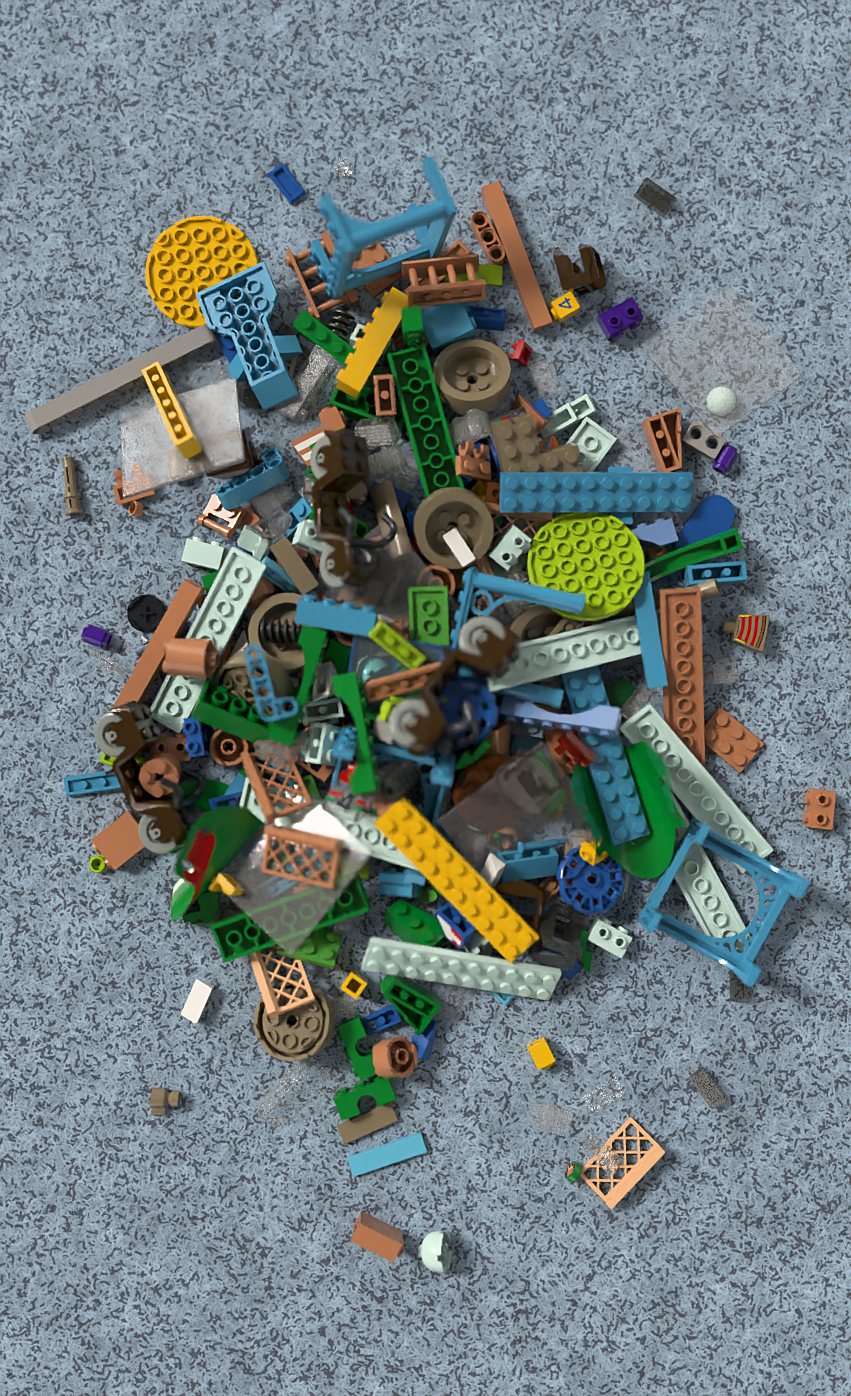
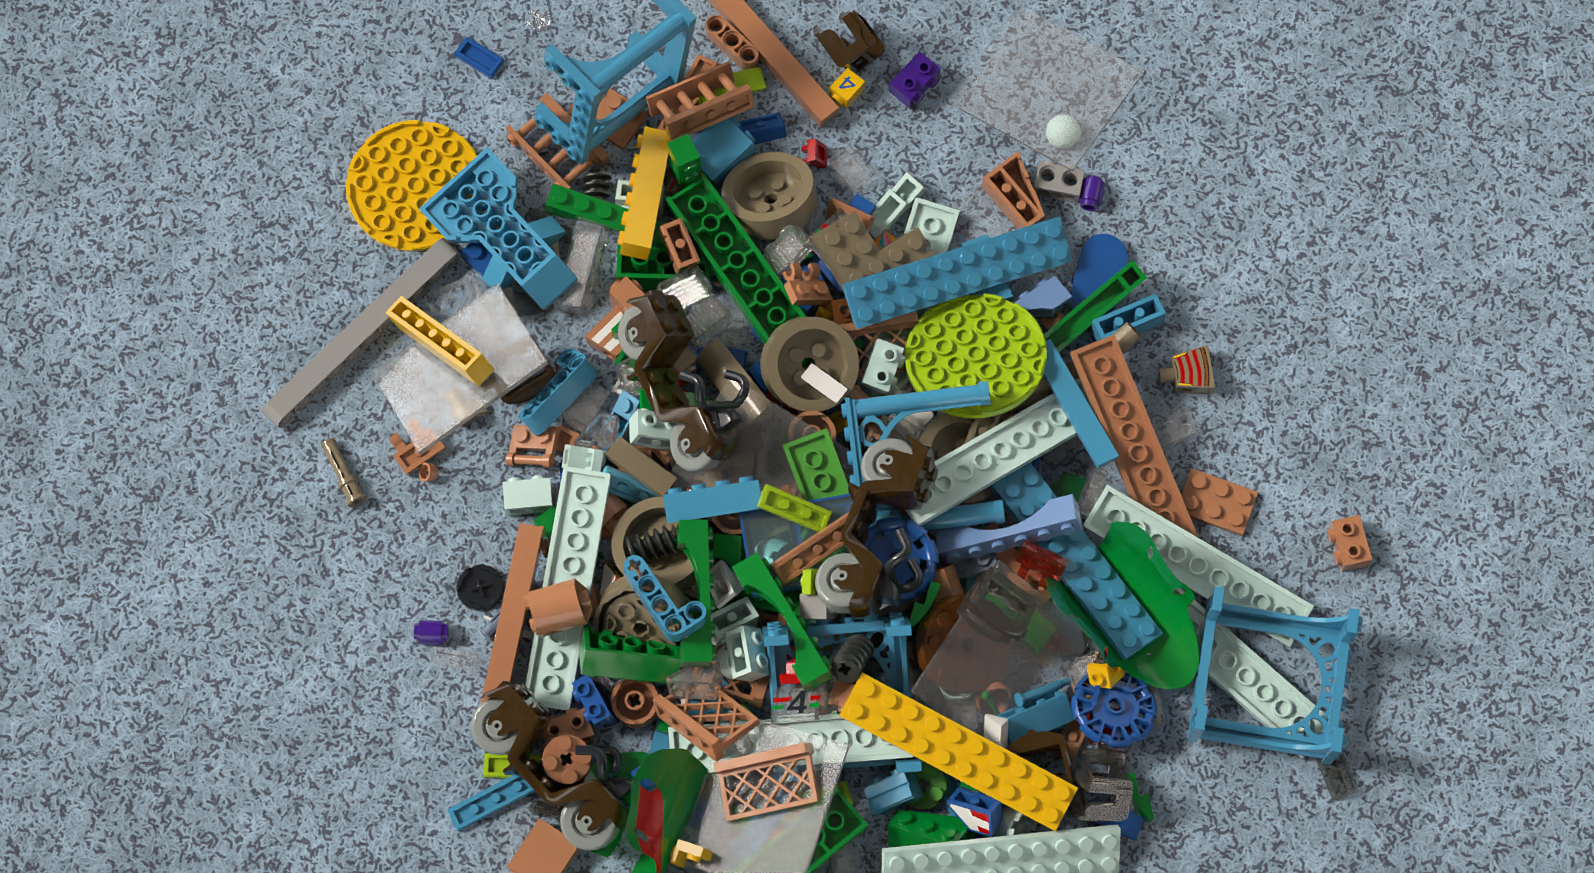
camera: 20 degrees left, 15 degrees down
(609, 937) = (1162, 772): light aqua brick -> none

